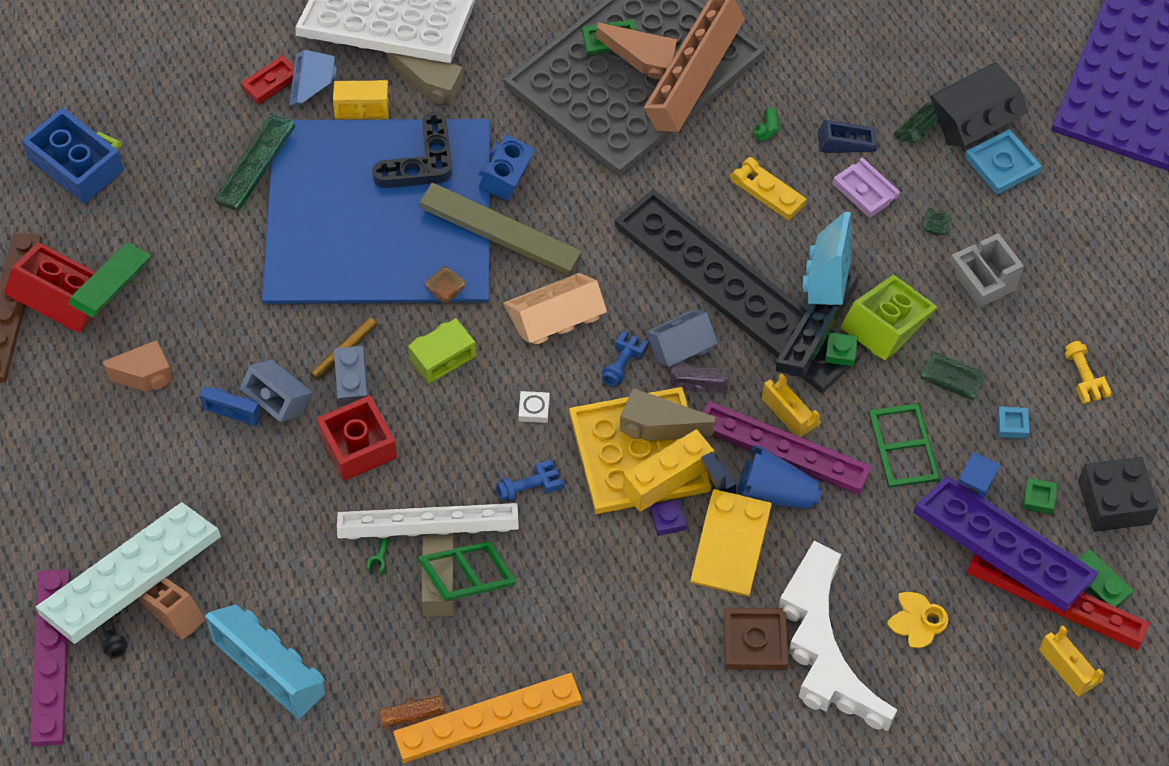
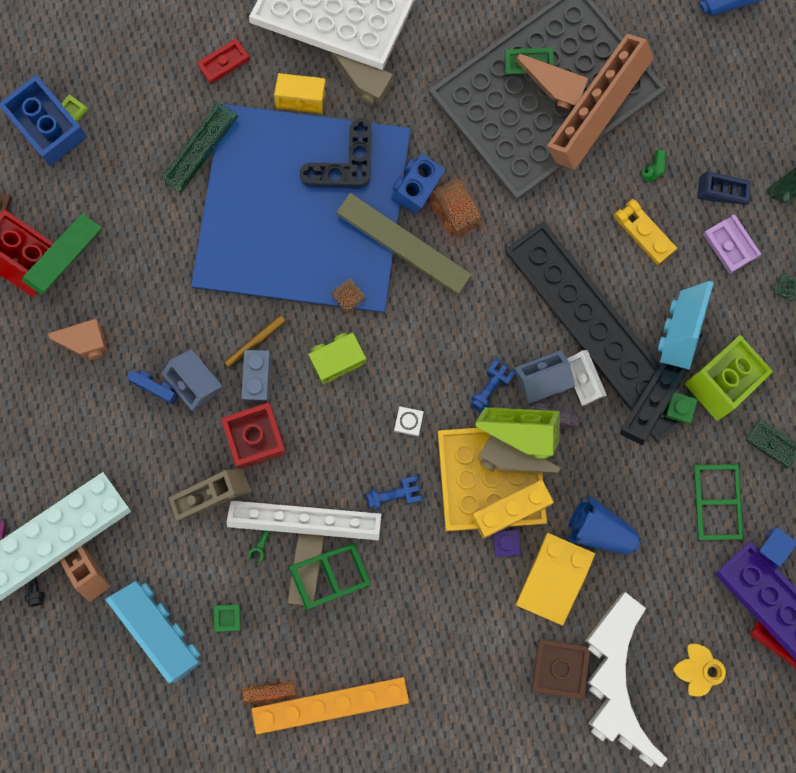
camera: 10 degrees right, 20 degrees up
(310, 75) = (258, 65): medium blue slope -> none
(312, 506) = (210, 493): none -> dark tan slope
(350, 637) = (227, 618): none -> green plate
(553, 188) = (456, 208): none -> clear orange brick
(556, 308) = (440, 328): light nougat slope -> none
(678, 381) = (524, 429): none -> lime slope
(719, 473) = (555, 519): dark blue slope -> none
(730, 337) = (586, 380): none -> white plate
(789, 407) = (627, 456): yellow hinge -> none
(800, 453) = (617, 494): magenta plate -> none

